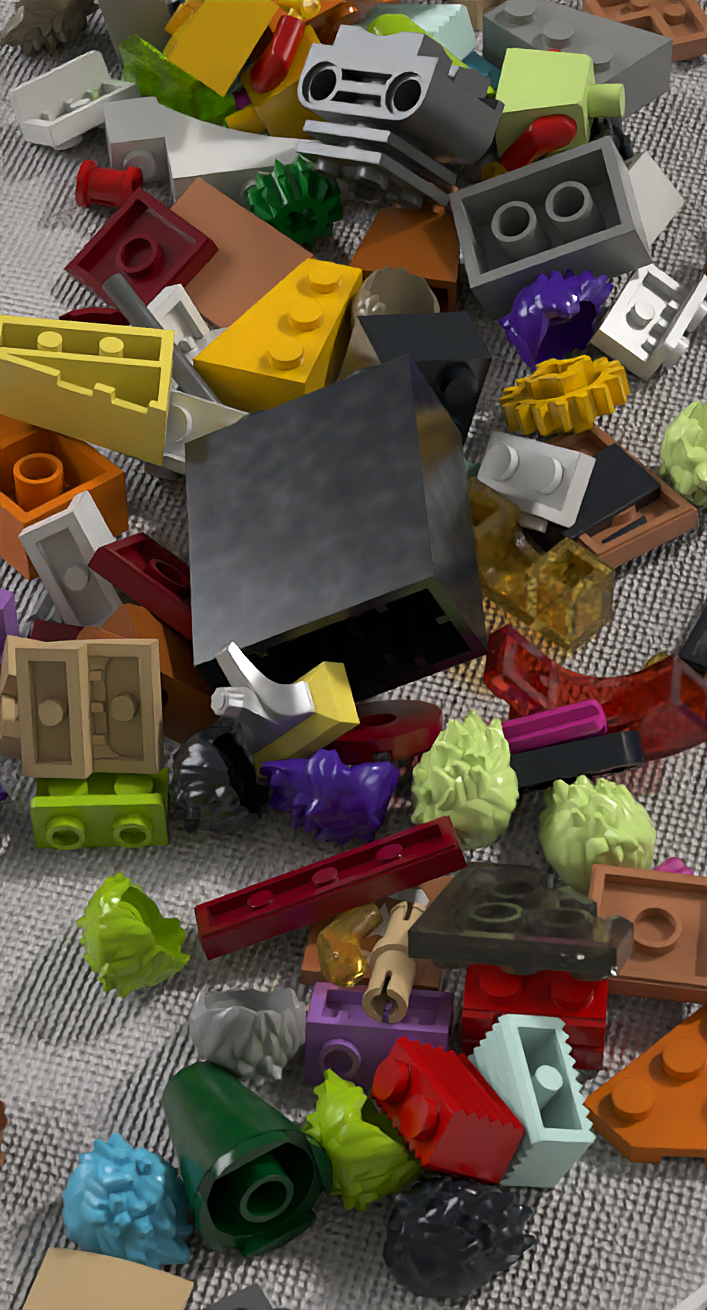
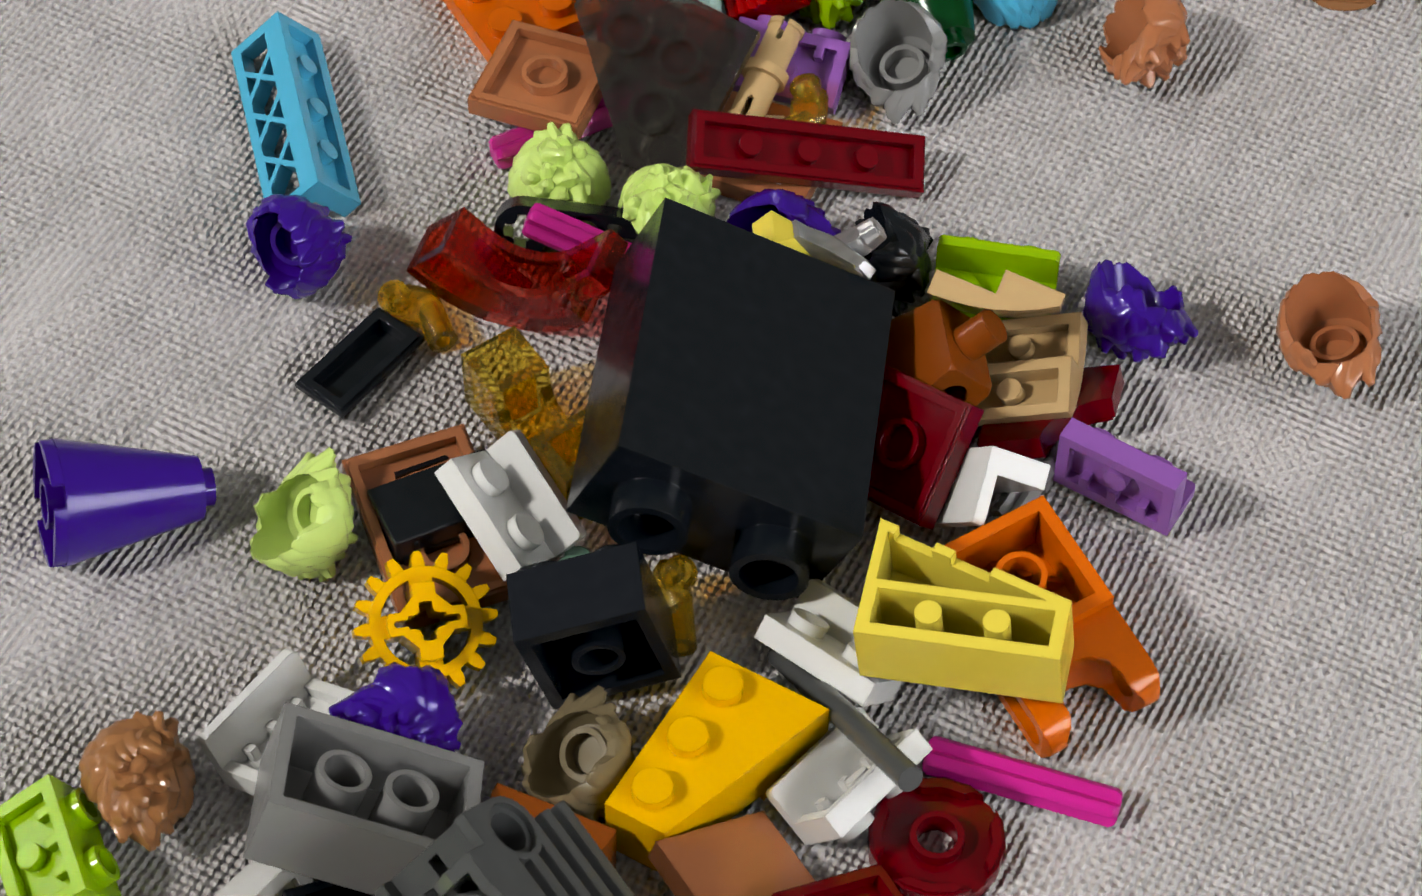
camera: 170 degrees left, 5 degrees up
(129, 938) = (980, 149): lime hair -> none

